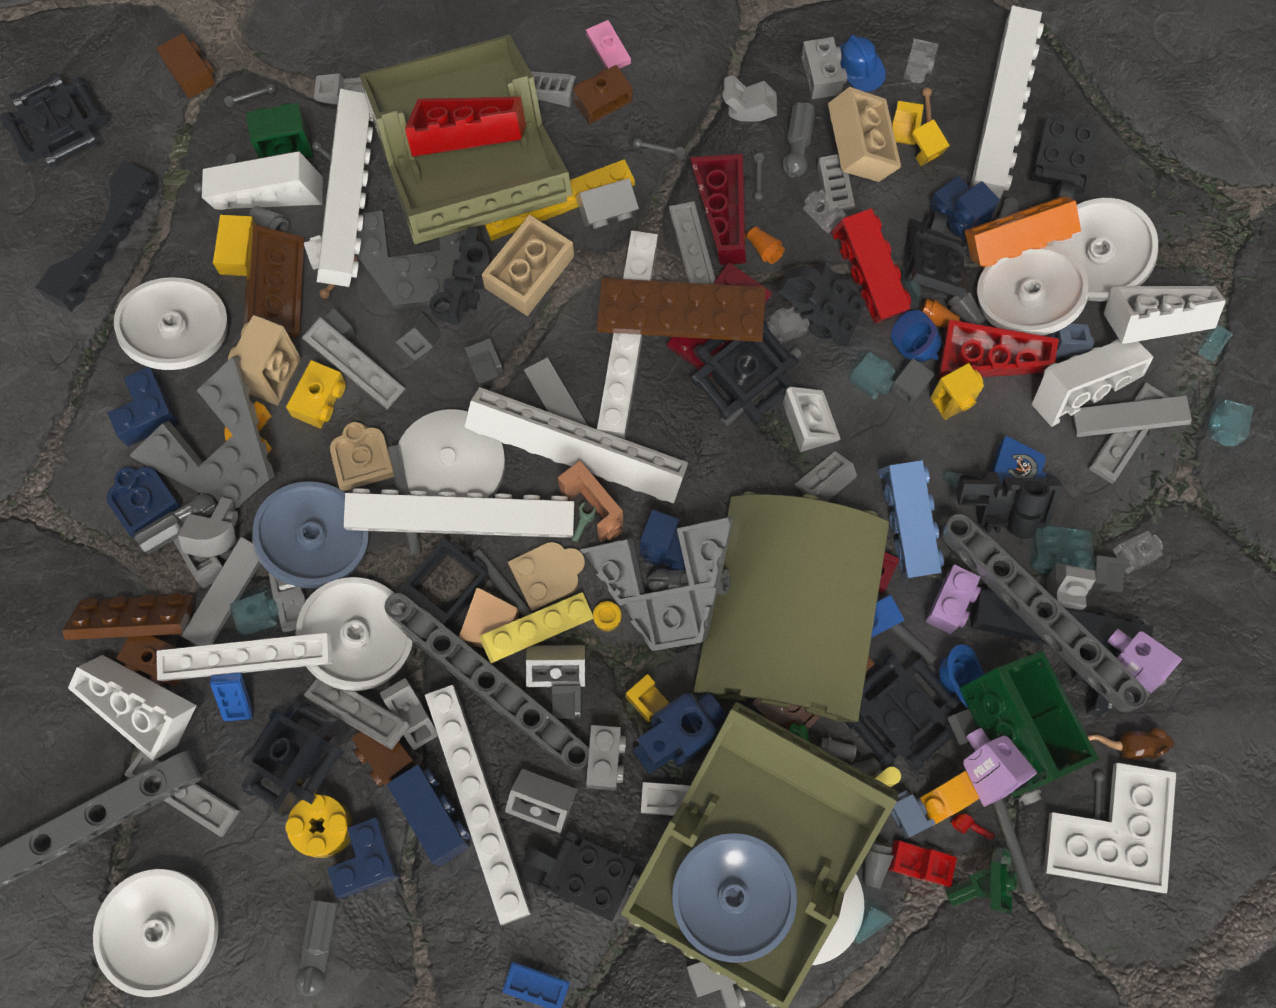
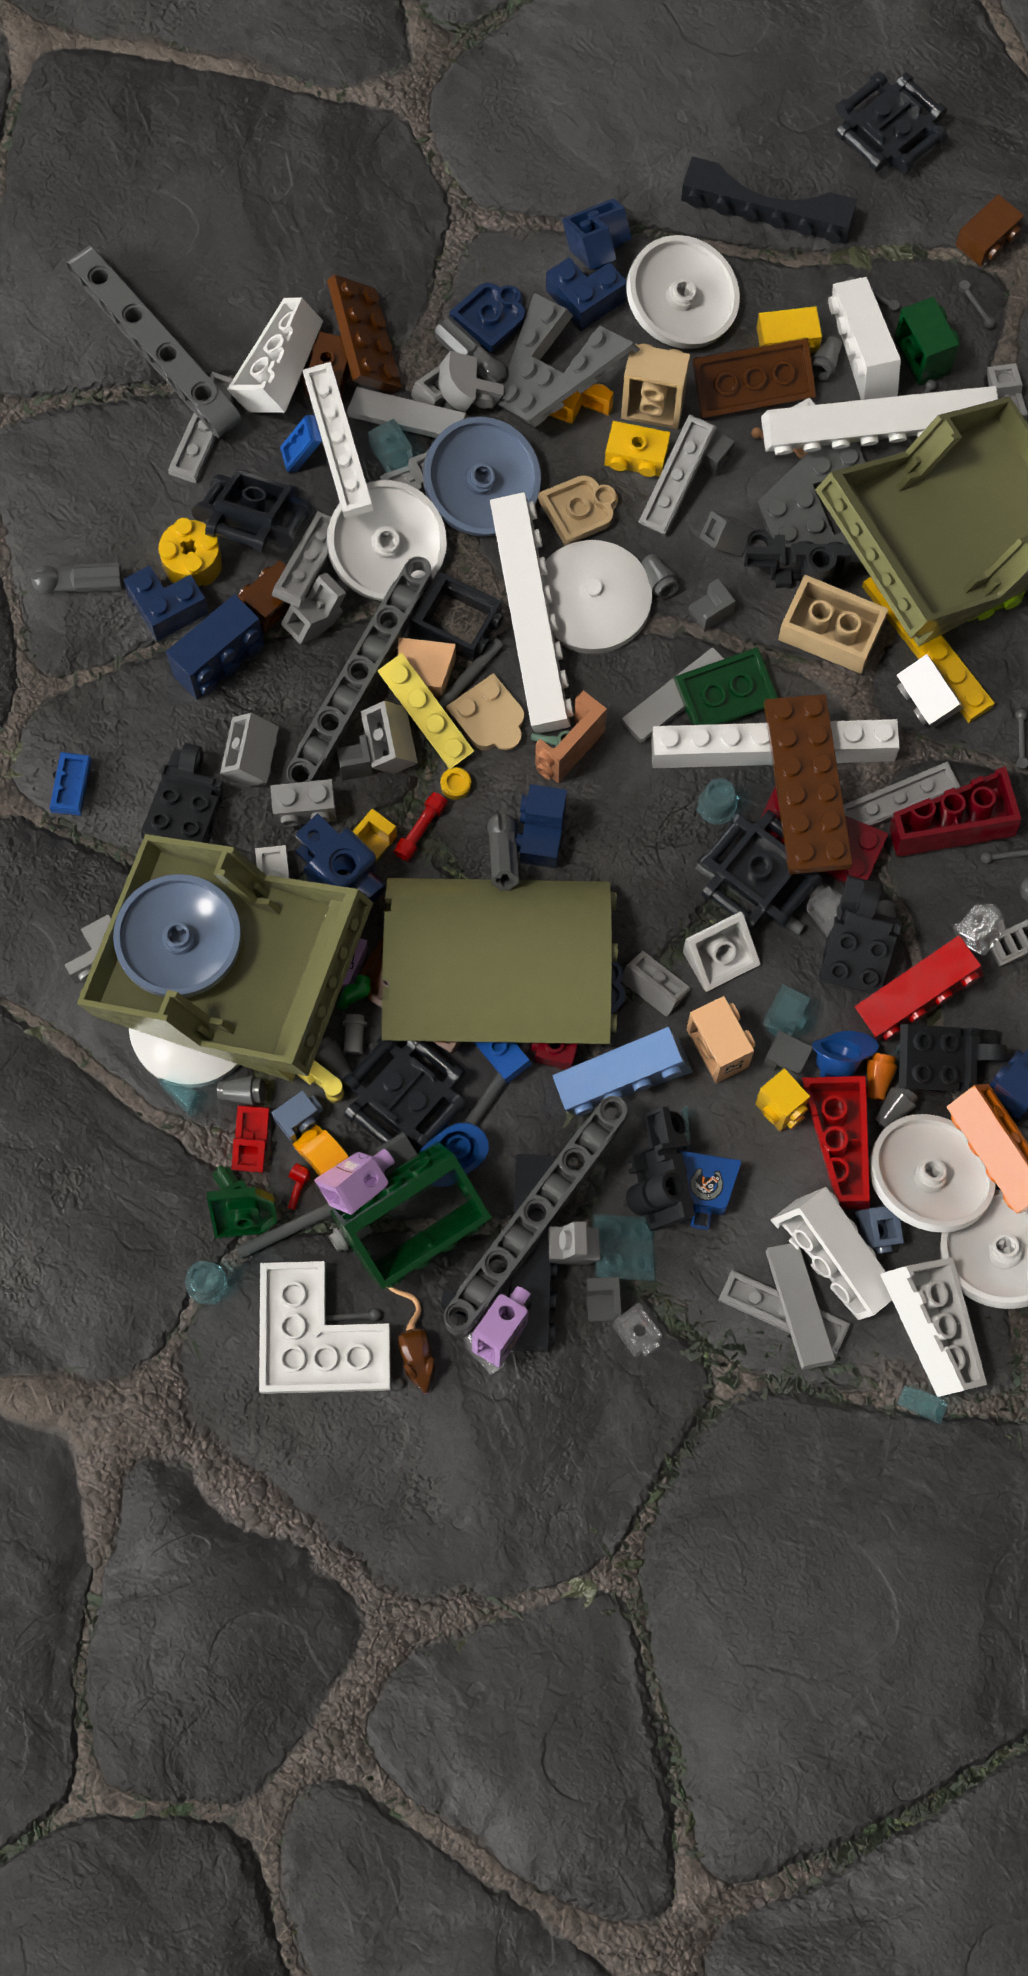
camera: 80 degrees right, 0 degrees up
(87, 385) = (597, 232): none -> dark blue brick
(155, 932) = (68, 433): white dish -> none
(401, 486) = (549, 554): dark grey bar -> none
(446, 399) = (661, 578): none -> dark grey cone
(463, 123) = (969, 509): red wedge -> none
(478, 805) = (237, 692): white brick -> none
(568, 366) = (726, 689): none -> dark green tile
(572, 442) = (631, 711): white brick -> none
(626, 638) = (407, 846): none -> red bar
(670, 394) = (718, 802): none -> clear light blue piece
(676, 614) = (464, 840): wing -> none
(767, 246) = (921, 875): orange cone -> none
(896, 430) = (720, 1039): none -> light nougat brick
(952, 600) = (538, 1130): lavender brick -> none
(1055, 928) = (206, 1282): none -> clear light blue piece
(1231, 423) = (817, 1424): clear light blue brick -> none

